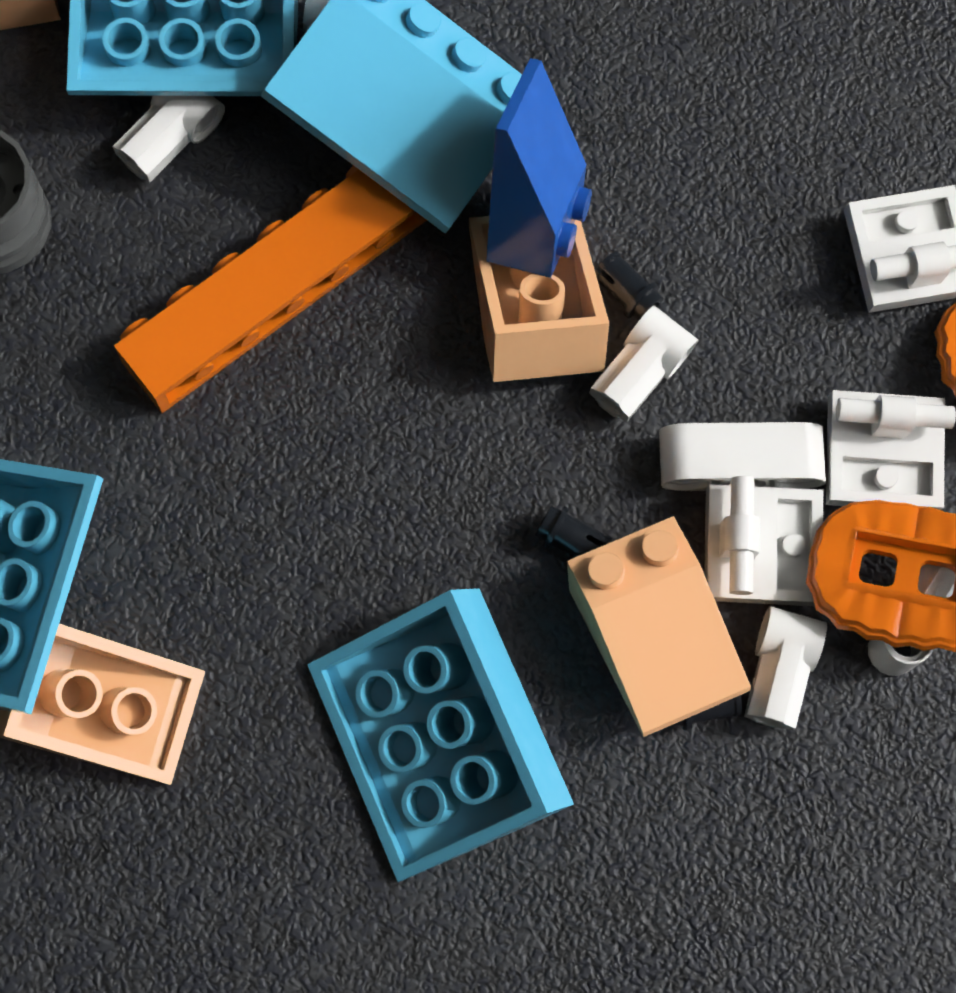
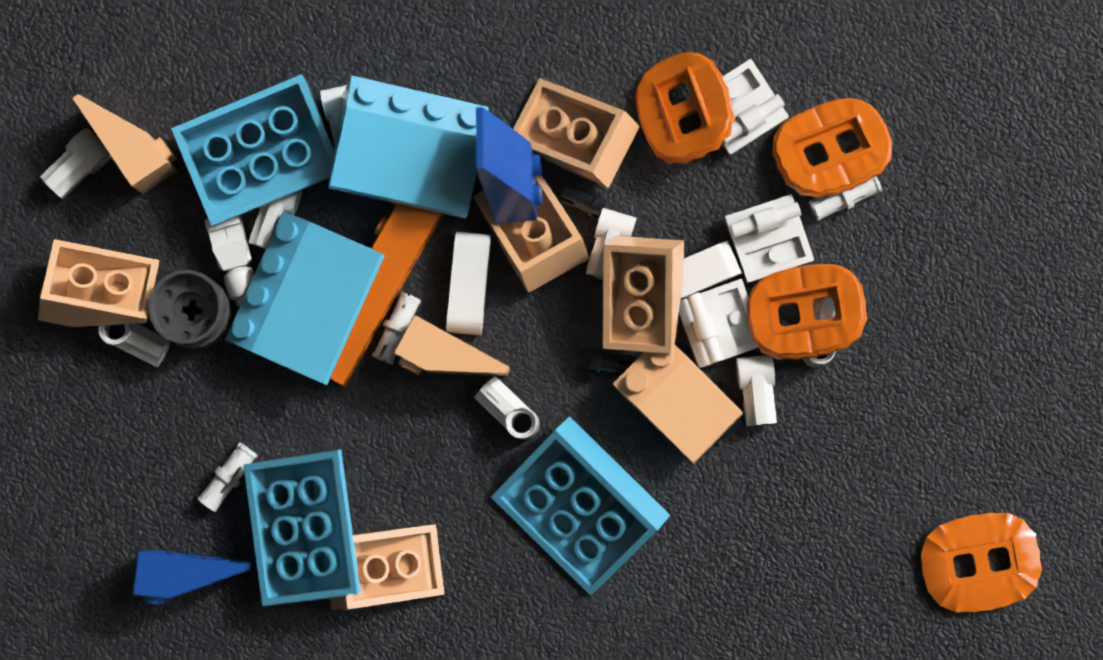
camera: 10 degrees left, 10 degrees up
(83, 156) = (232, 255): none -> white piece
(155, 247) = (305, 297): none -> medium azure slope
(274, 356) = (396, 327): none -> white pin
(326, 413) = (440, 353): none -> light nougat slope
(389, 539) = (506, 407): none -> white piece
(409, 334) = (468, 283): none -> white beam
(663, 188) = (576, 131): none -> light nougat slope
(666, 441) = (641, 293): none -> light nougat slope
(874, 209) = (661, 118): none -> orange piece

